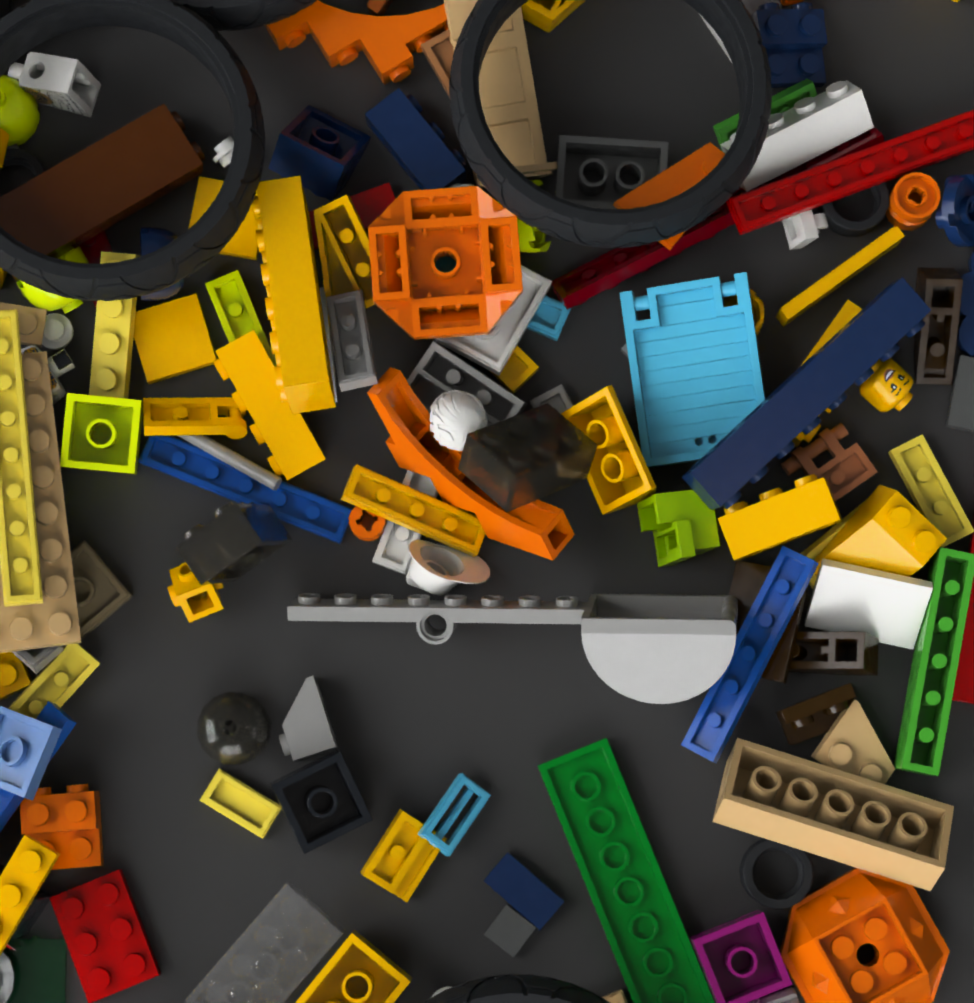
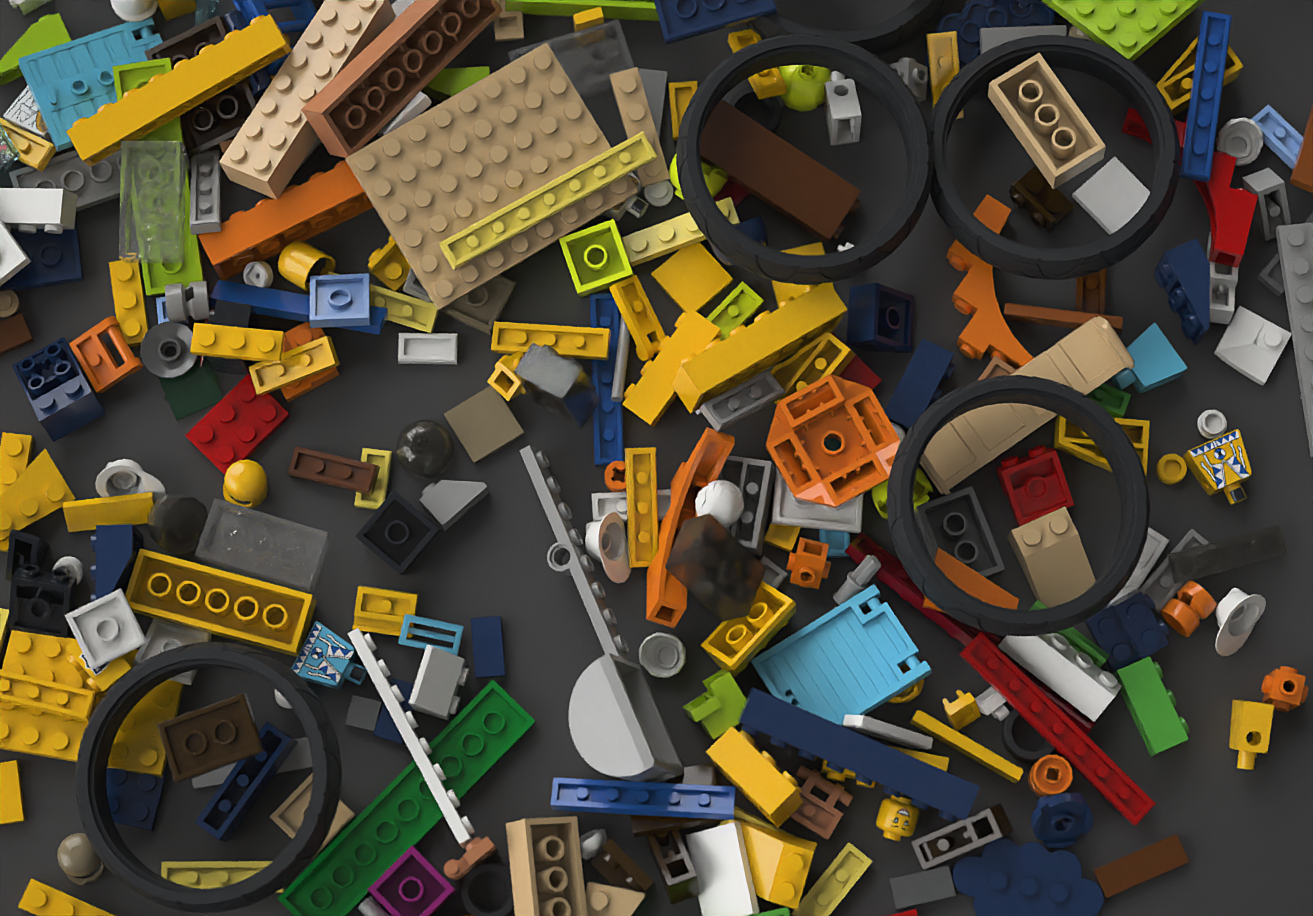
camera: 65 degrees right, 5 degrees down
(69, 837) = (294, 365): none -> yellow plate
(115, 674) = (428, 348): none -> white tile
(180, 955) = (245, 482): none -> yellow helmet
(181, 513) = (566, 340): none -> yellow plate
(211, 845) = (333, 470): none -> reddish brown tile
(235, 648) = (484, 424): none -> dark tan tile
(431, 946) = (328, 659): none -> torso
(496, 755) = (488, 647): none -> dark blue tile
(516, 829) = (438, 683): none -> white slope
(548, 887) = (418, 747): none -> white plate
(563, 353) = (809, 563): none -> orange brick
(582, 70) = (1034, 484): none -> red plate
(594, 561) = (662, 655): none -> white hair
(606, 309) = (858, 579): none -> light grey axle
(675, 89) = (1052, 558): none -> tan slope
(730, 868) = (477, 853): none -> nougat plate
(769, 732) = (592, 843): none -> white piece
(792, 352) = (887, 732): none -> white tile
(799, 263) = (962, 710): none -> yellow tile
(882, 59) = (1151, 706): none -> bright green brick

